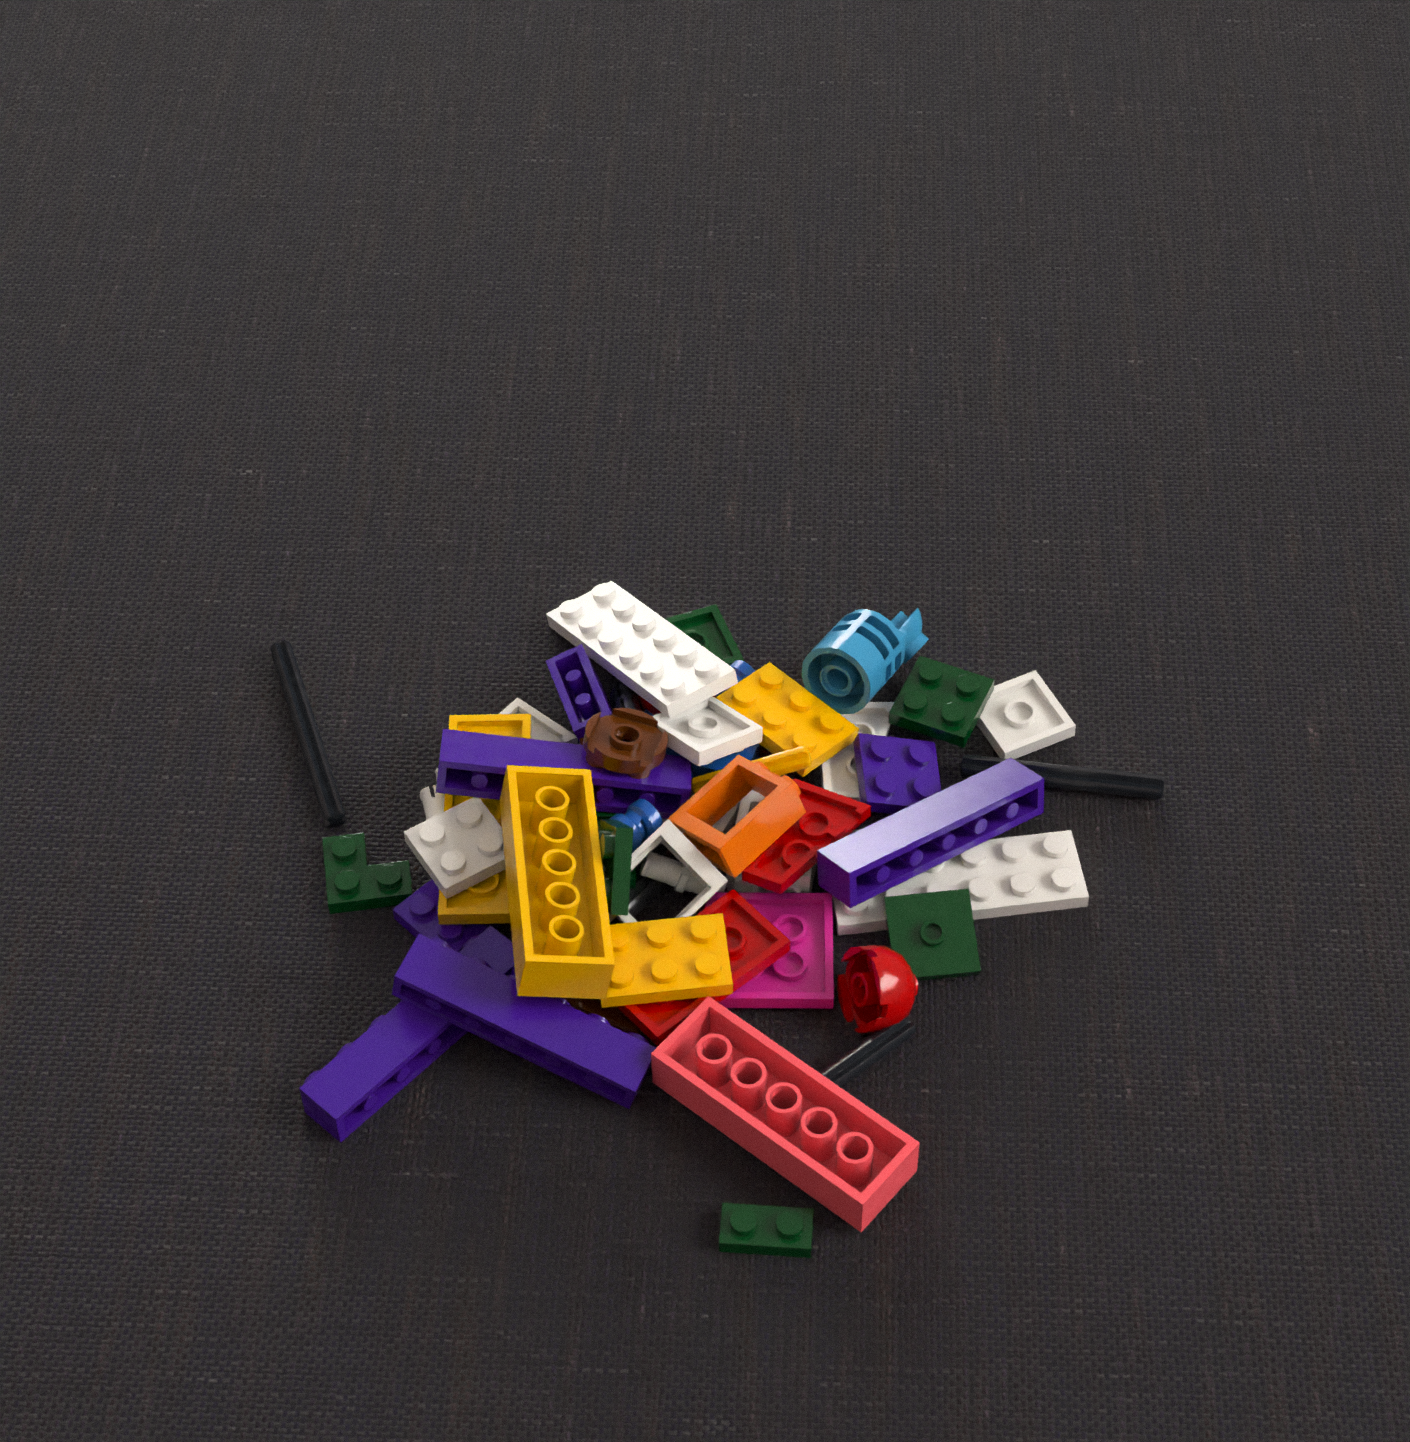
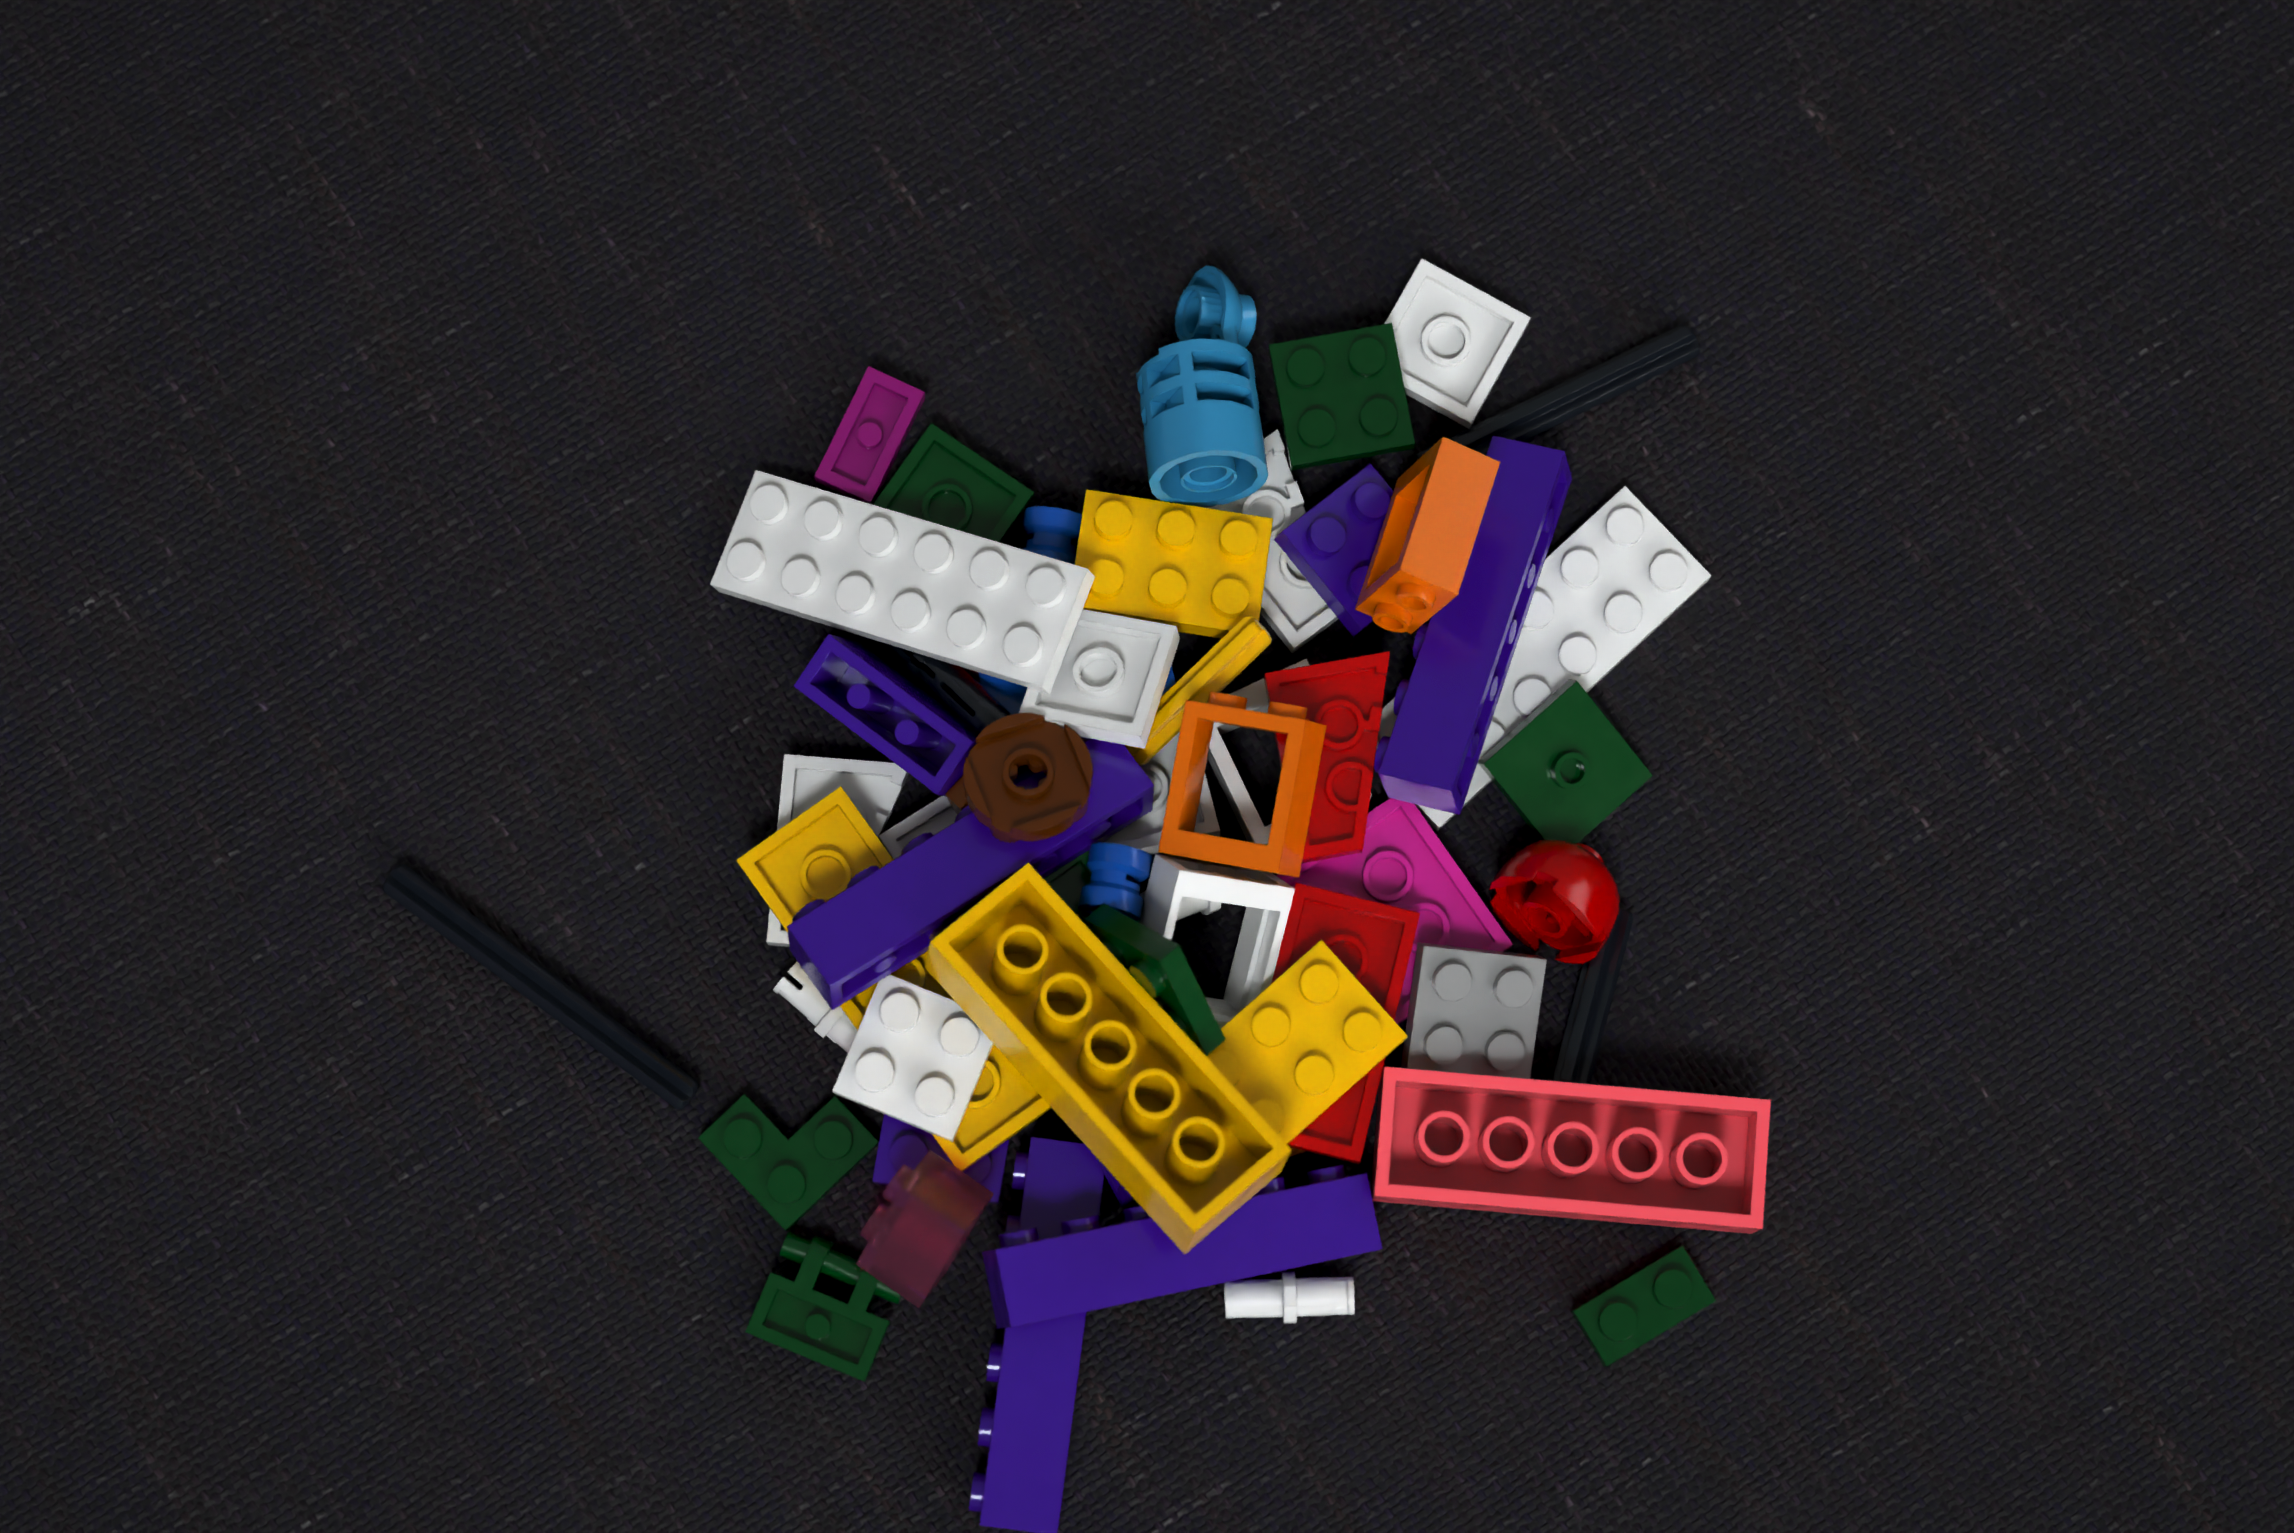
camera: 40 degrees left, 30 degrees up
(307, 960) = (817, 1324): none -> dark green plate
(392, 927) = (922, 1227): none -> clear pink brick
(566, 1097) = (1289, 1297): none -> white pin
(683, 593) = (870, 436): none -> magenta plate
(789, 1009) = (1473, 1011): none -> light grey plate
(933, 761) = (1427, 536): none -> orange window

